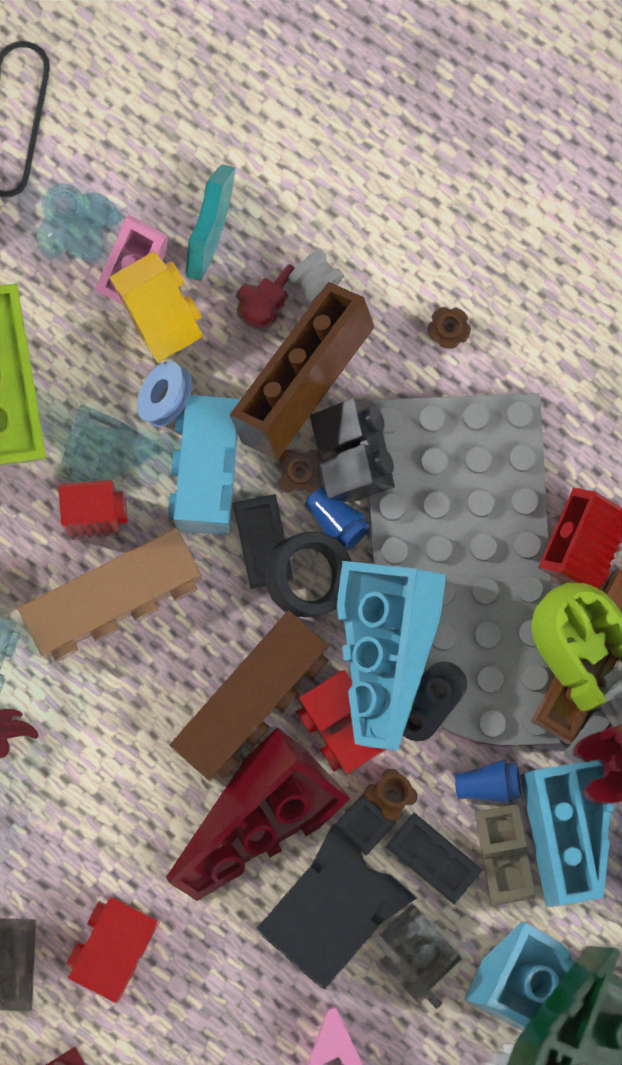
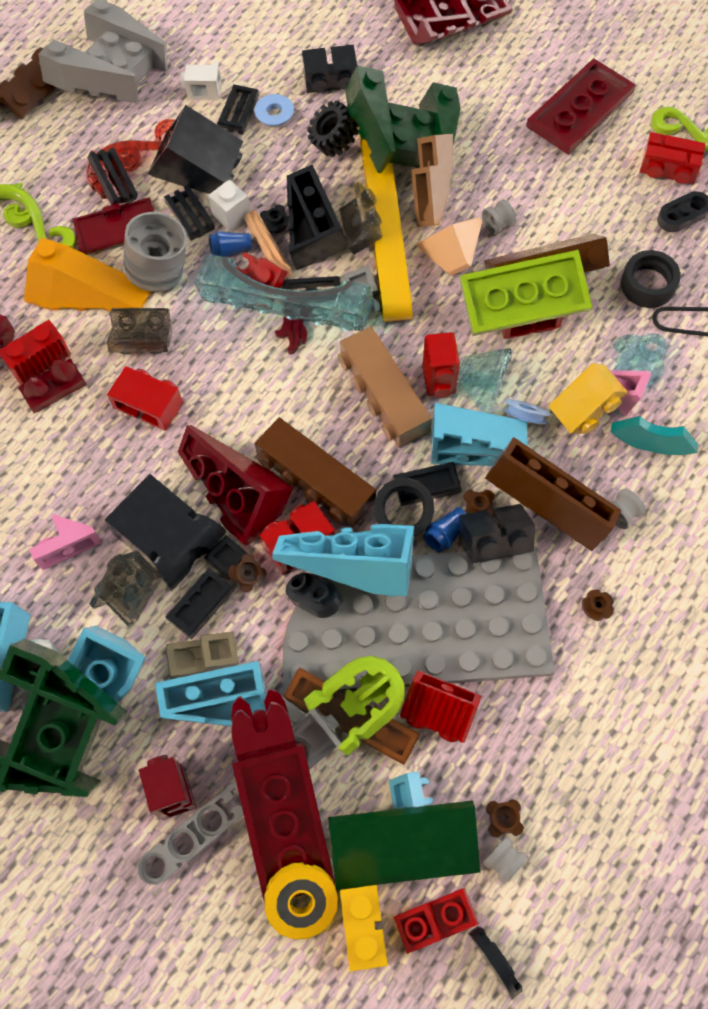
camera: 95 degrees right, 15 degrees down
(262, 304) = (599, 475): dark red piece -> none
(490, 783) = (254, 641): blue cone -> none

